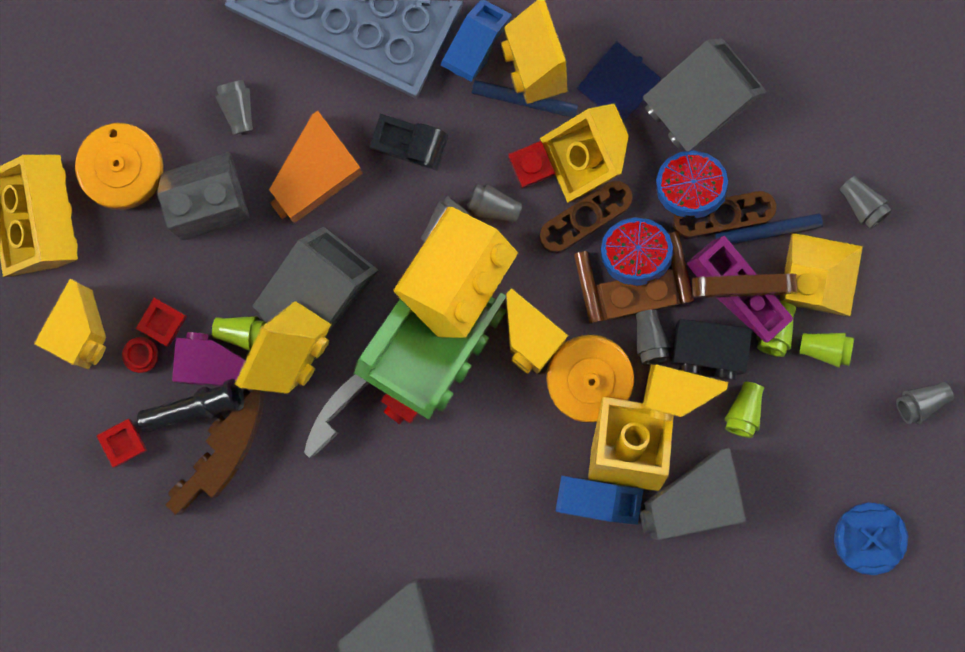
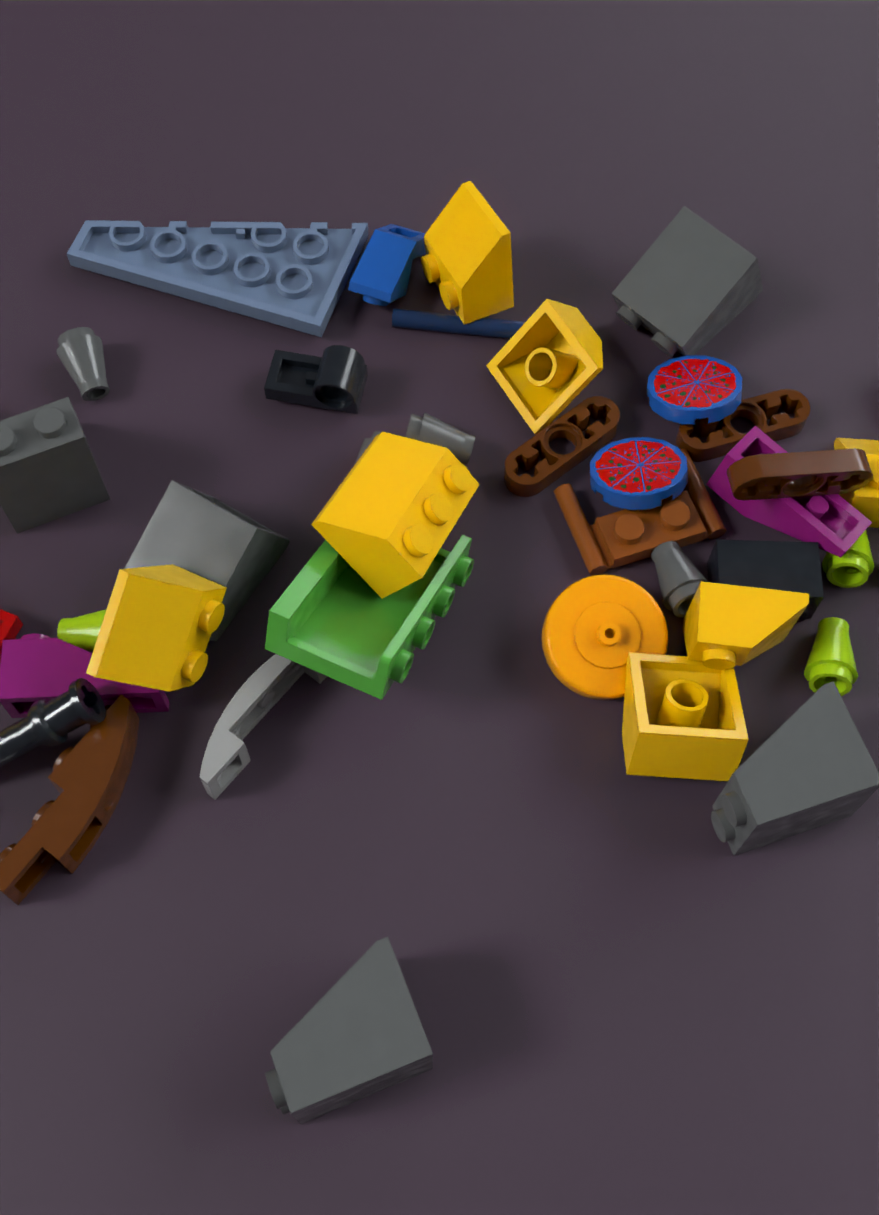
camera: 10 degrees left, 20 degrees down
(313, 171) = (191, 424): orange slope -> none
(397, 410) = (336, 706): red plate -> none
(531, 164) = (480, 395): red plate -> none
(531, 334) = (513, 578): yellow slope -> none
(599, 500) = (648, 800): blue slope -> none
(619, 80) = (578, 286): clear blue piece -> none
(772, 229) = (825, 431): dark blue bar -> none

